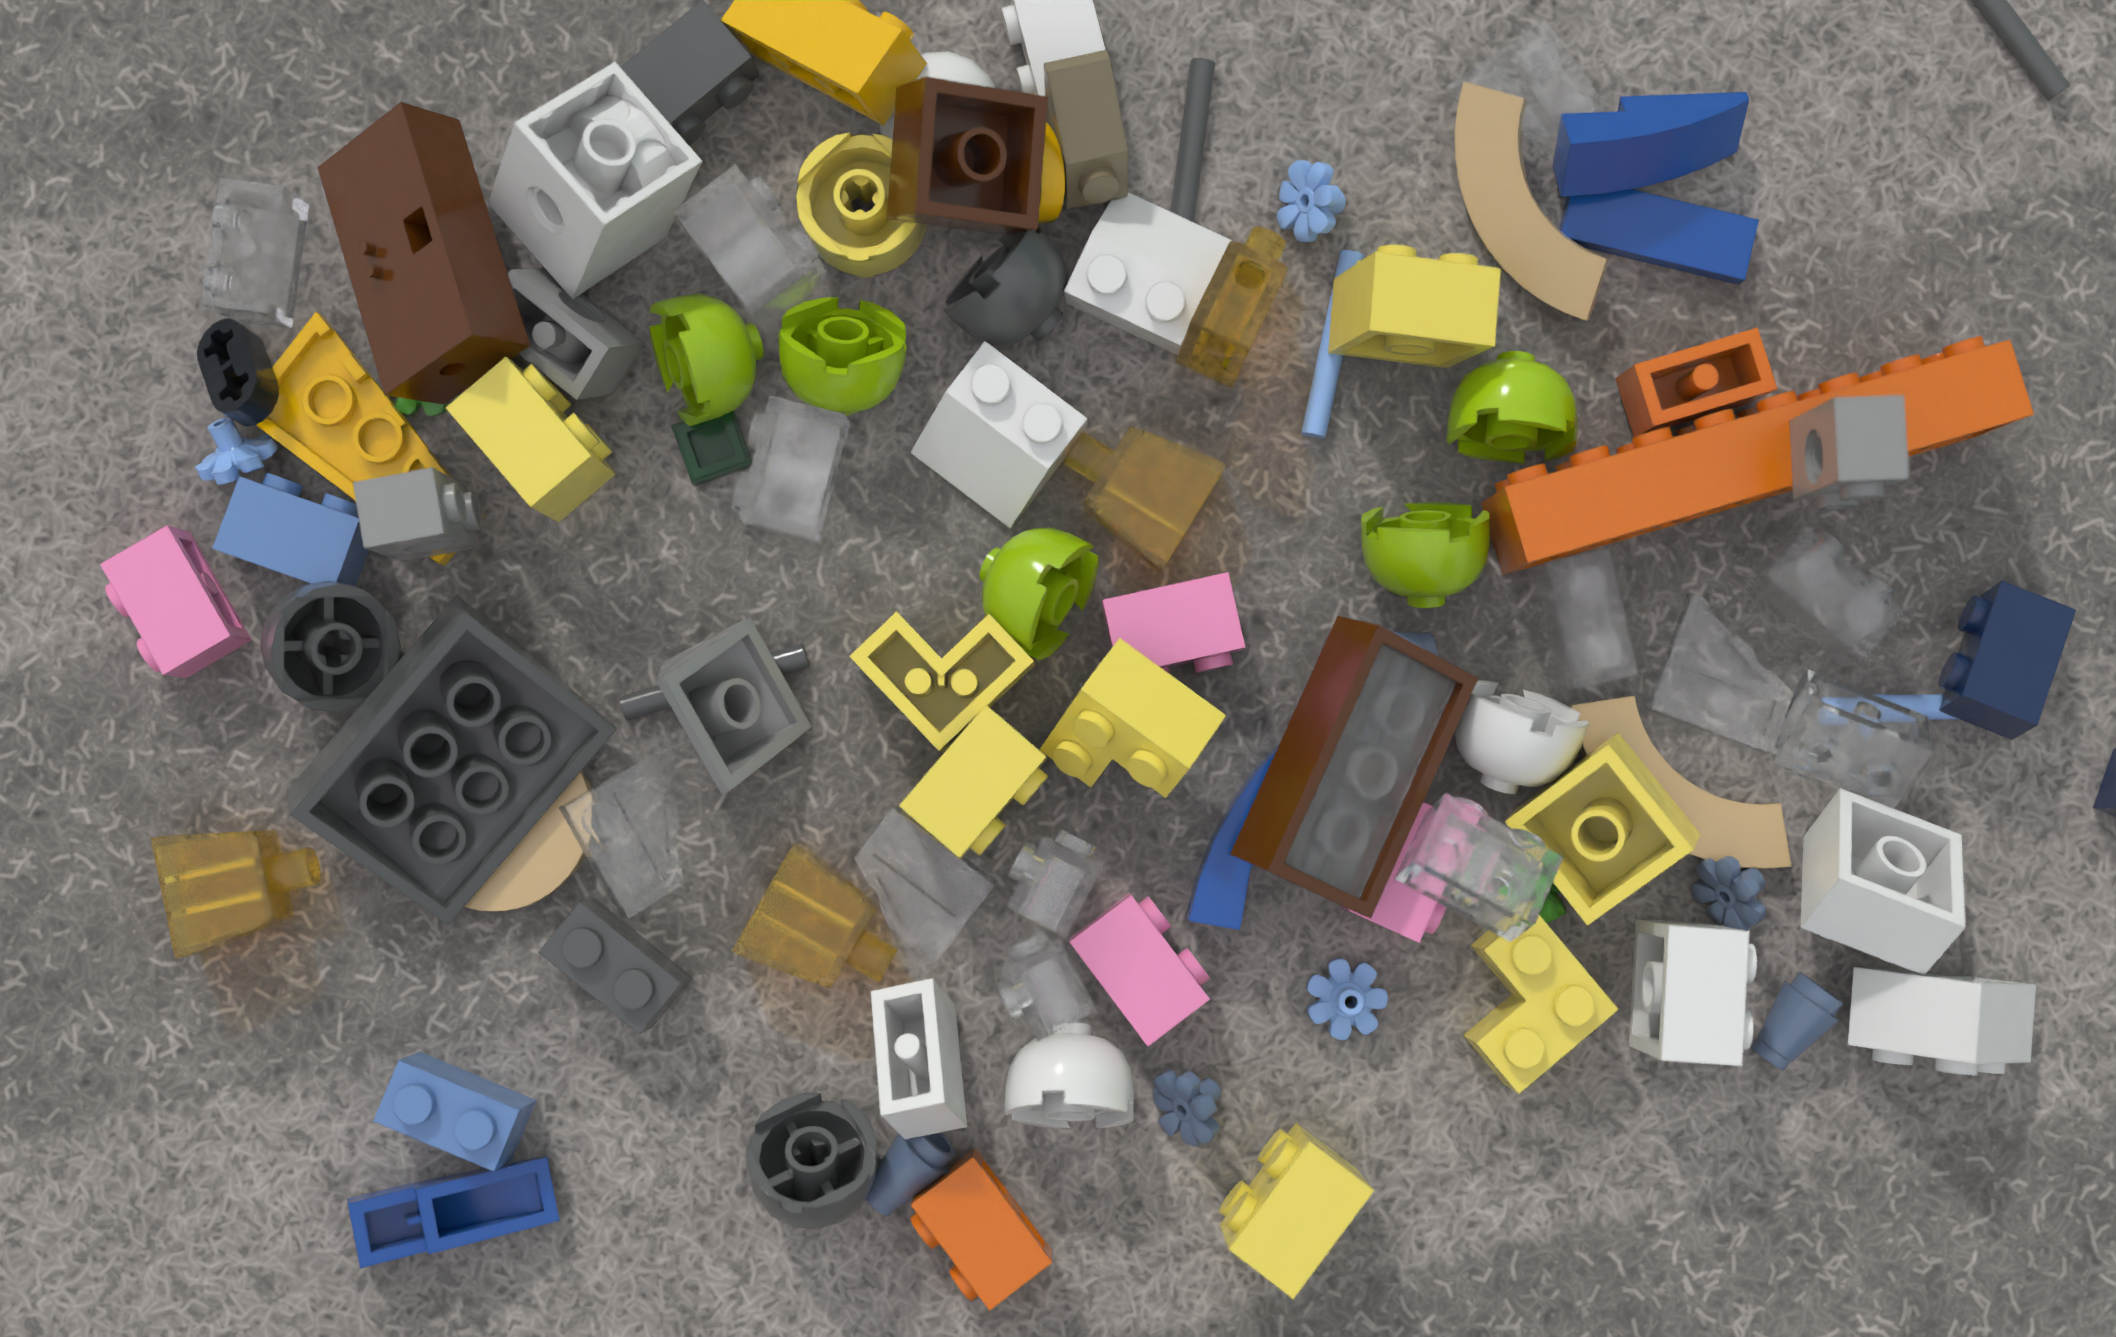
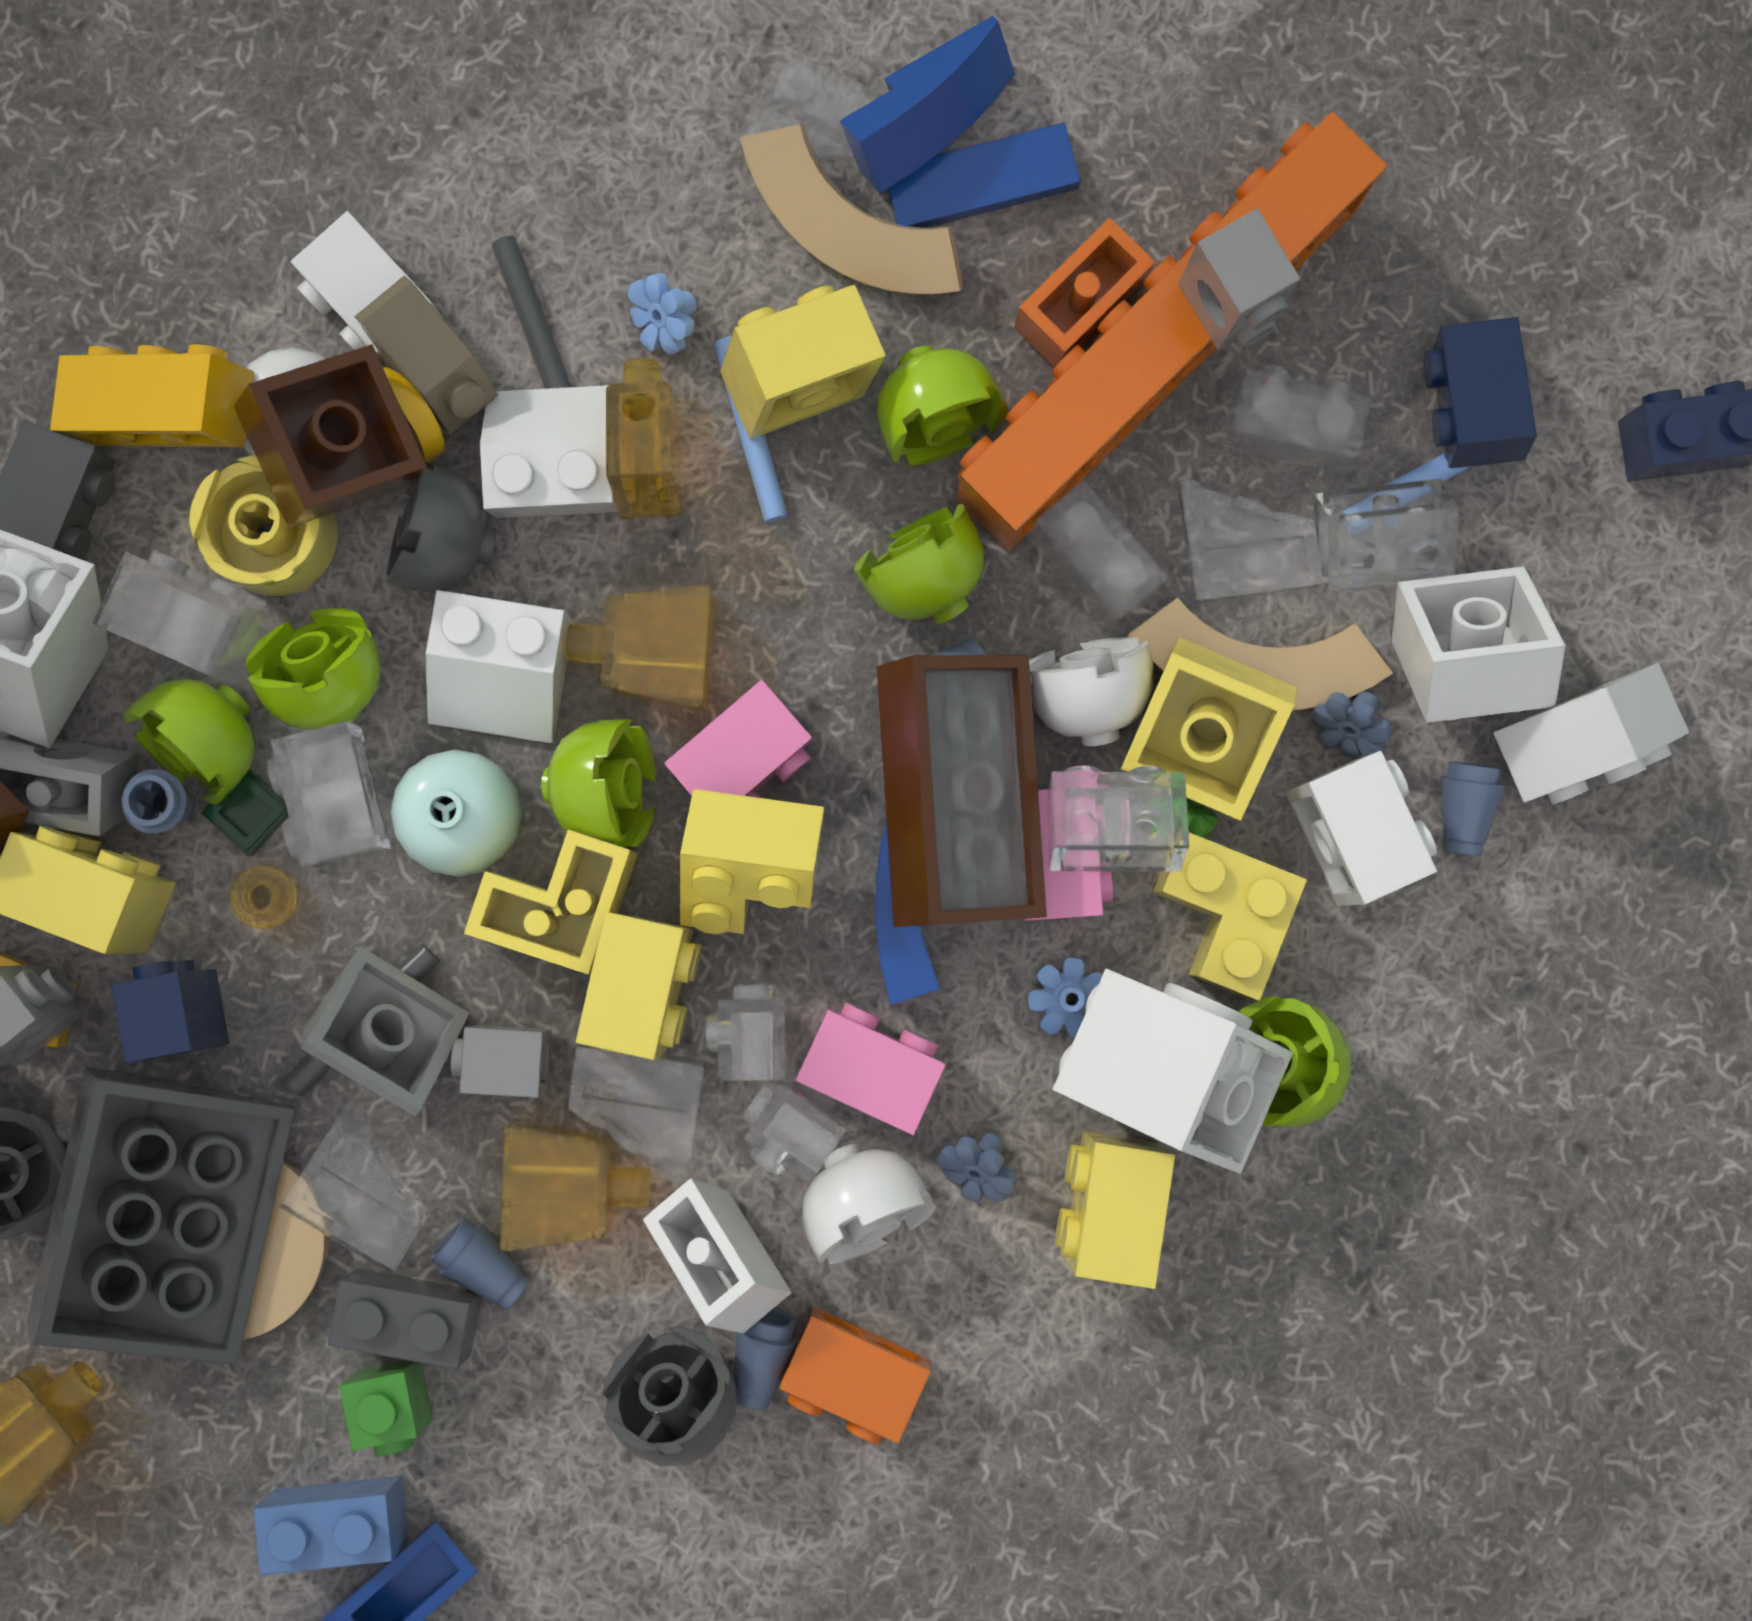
camera: 30 degrees left, 0 degrees up
(555, 585) = (169, 1011): none -> dark blue brick
(558, 1033) = (386, 1407): none -> bright green brick
(631, 385) = (145, 797): none -> sand blue cone
(704, 952) = (475, 1262): none -> sand blue cone
(705, 533) = (282, 897): none -> clear yellow plate
(820, 785) = (502, 1060): none -> light grey brick
(913, 568) = (484, 819): none -> light aqua cylinder
(1412, 1112) = (1173, 1068): none -> white brick
(1510, 1160) = (1319, 1061): none -> lime cylinder

